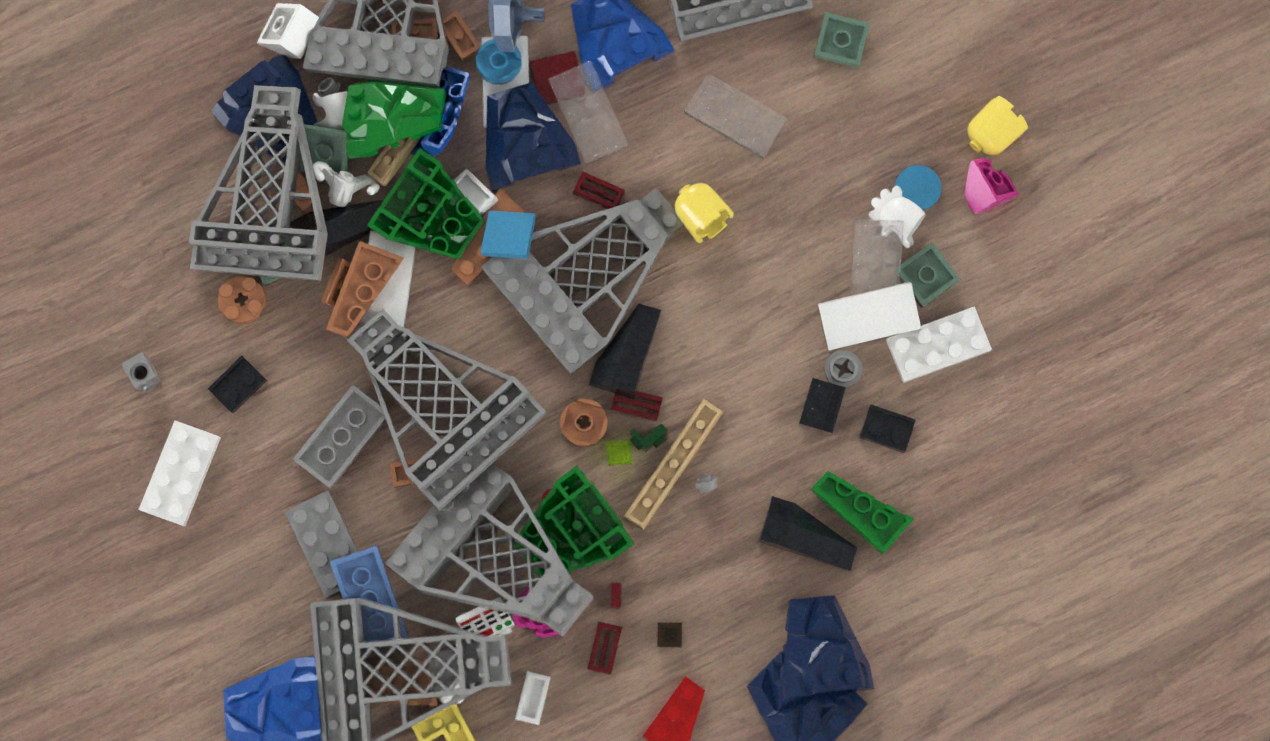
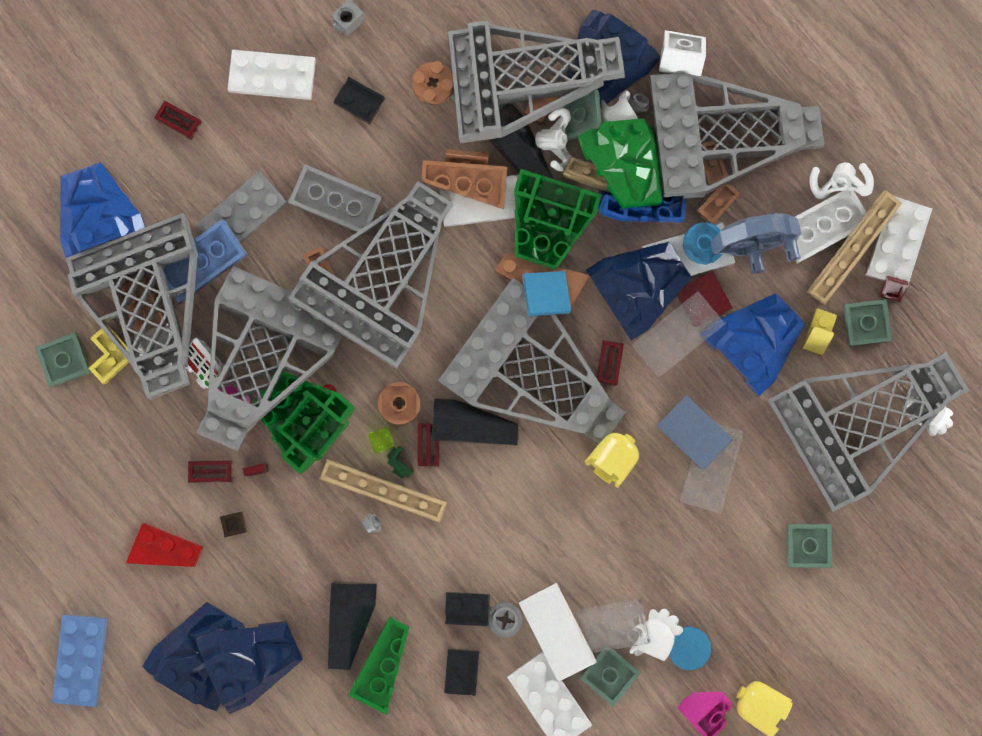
camera: 75 degrees right, 5 degrees up
(214, 575) = (193, 128): none -> dark red tile
(475, 191) = (579, 254): white tile -> none
(533, 698) = (153, 421): white tile -> none
(696, 122) = (695, 433): none -> sand blue tile

